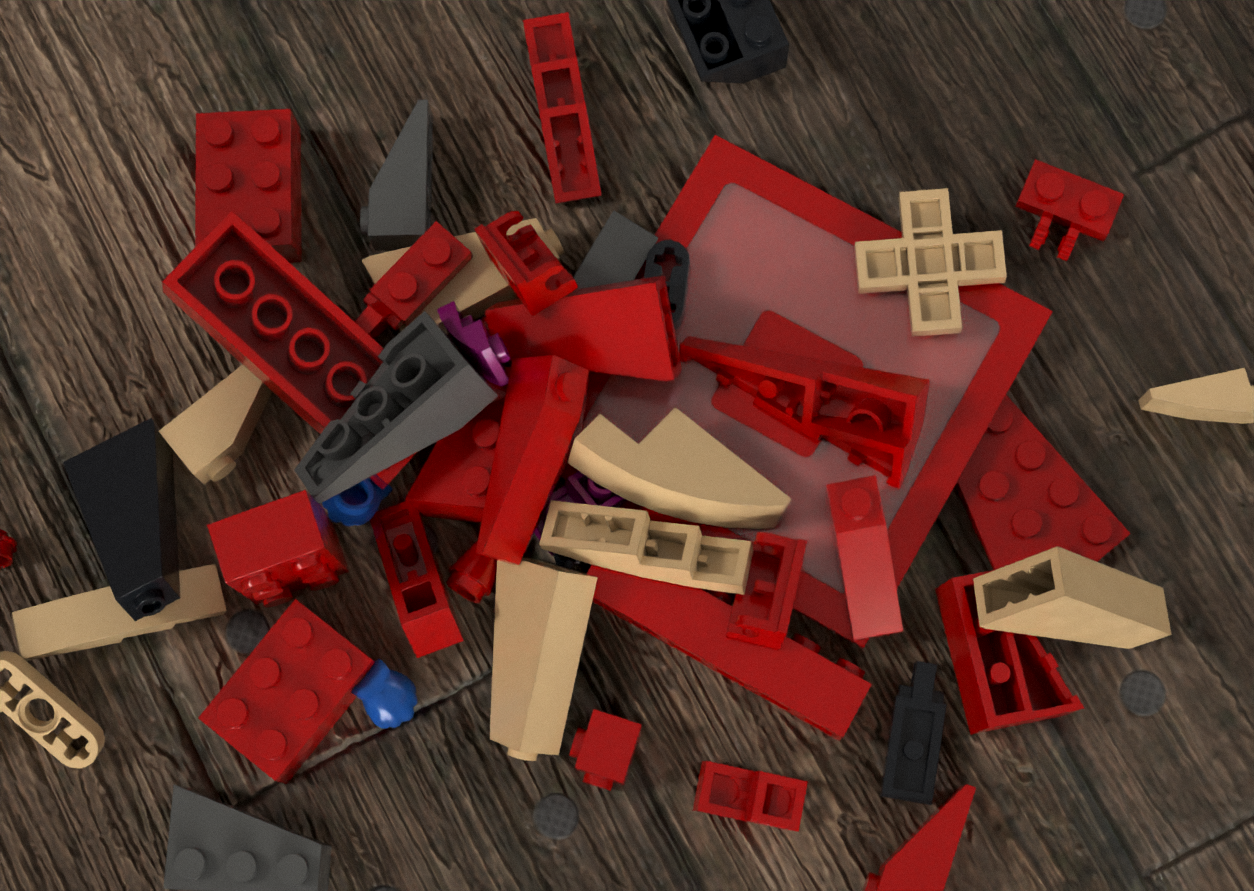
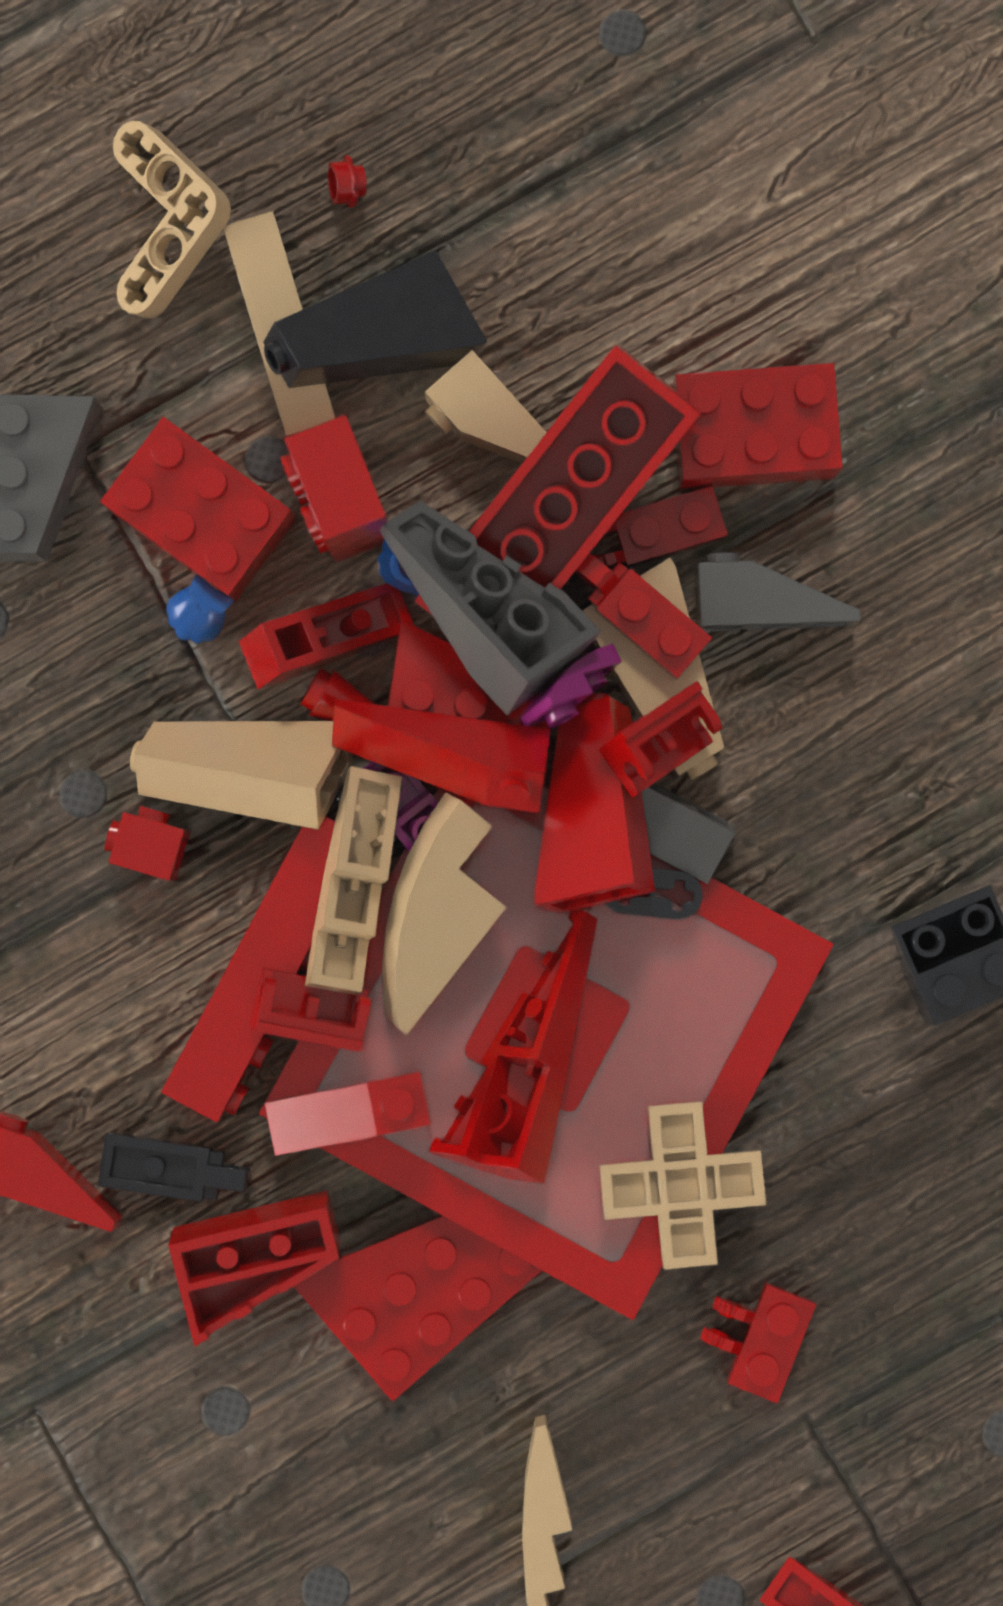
camera: 85 degrees right, 10 degrees up
(334, 264) = (666, 528): none -> red hinge
(562, 108) = (863, 770): red slope -> none
(750, 796) = (105, 996): red slope -> none
(1071, 600) = (302, 1335): tan slope -> none

